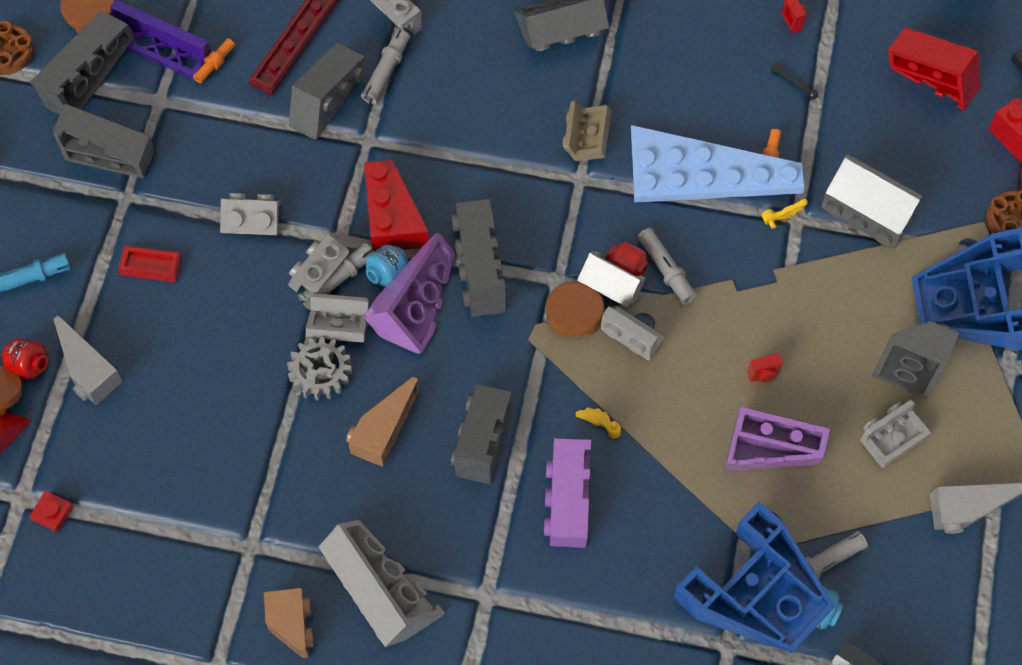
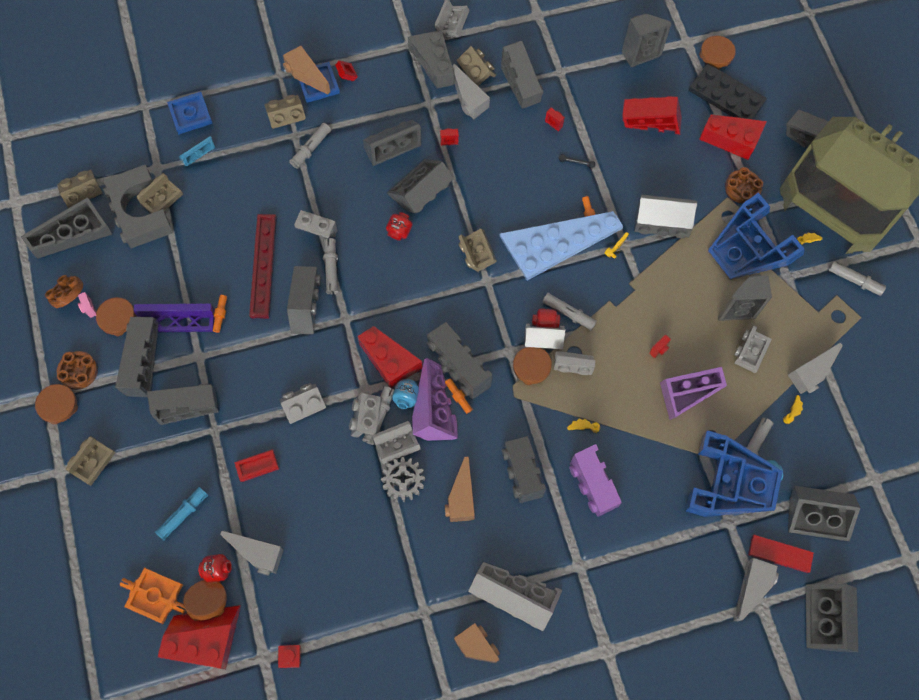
camera: 30 degrees left, 5 degrees up
(454, 302) = (458, 396): none -> orange bar
(502, 56) = (399, 226): none -> red head
(913, 546) = (796, 410): none -> yellow piece

